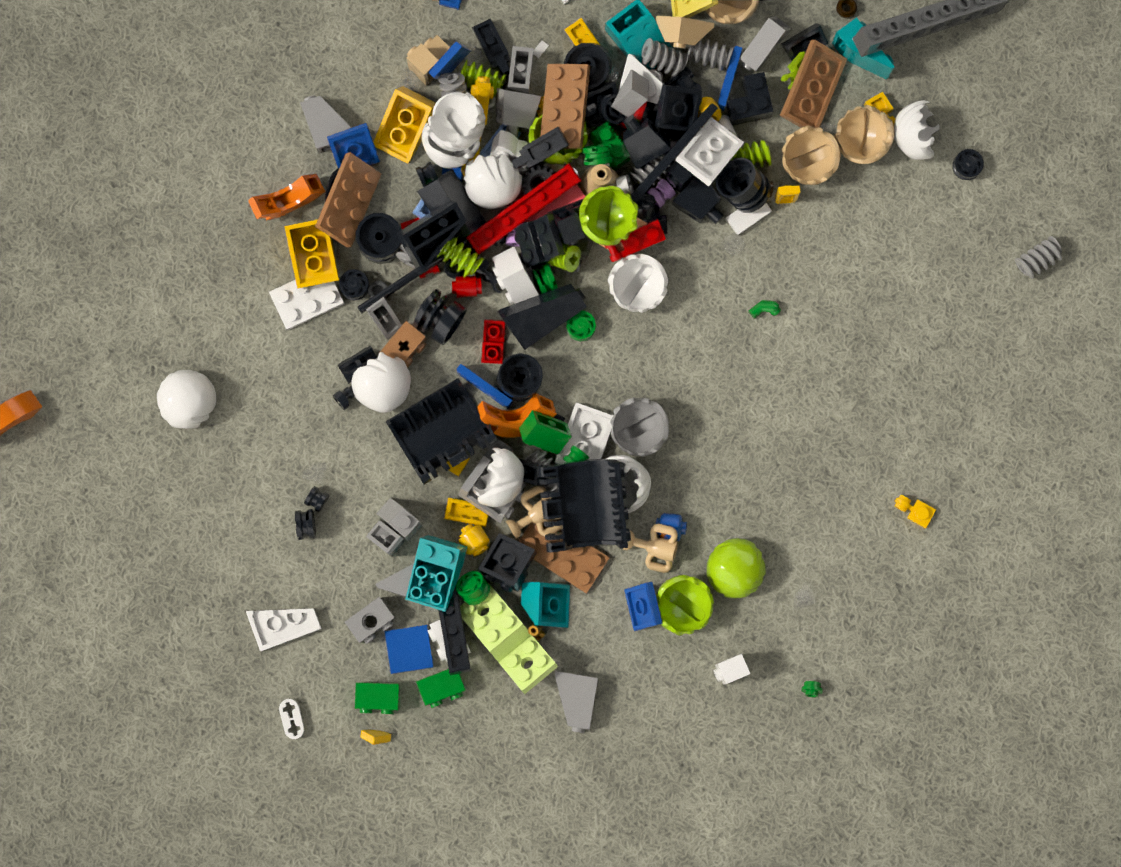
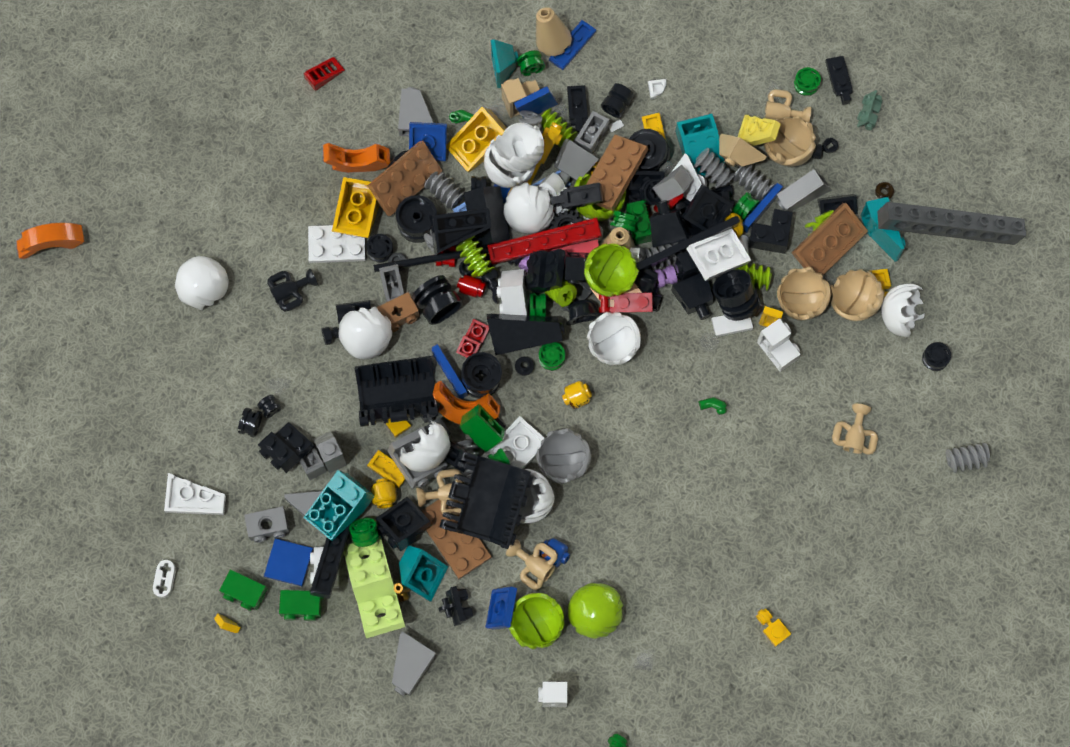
camera: 25 degrees right, 10 degrees down
(214, 120) = (316, 84): none -> red slope
(280, 367) = (289, 288): none -> black piece
(353, 535) = (285, 447): none -> black plate
(375, 105) = (460, 116): none -> green arm
(393, 27) = (503, 60): none -> teal slope
(394, 195) = (444, 190): none -> light grey piece
(423, 17) = (531, 63): none -> green wheel
(531, 24) = (618, 99): none -> black wheel
(557, 354) = (524, 371): none -> black plate
(593, 265) = (582, 311): none -> black piece
(594, 624) = (453, 607): none -> black hips
(624, 356) = (577, 394): none -> yellow head
(712, 84) = (745, 206): none -> green wheel
(806, 220) = (777, 346): none -> white brick
(919, 279) = (856, 434): none -> tan piece

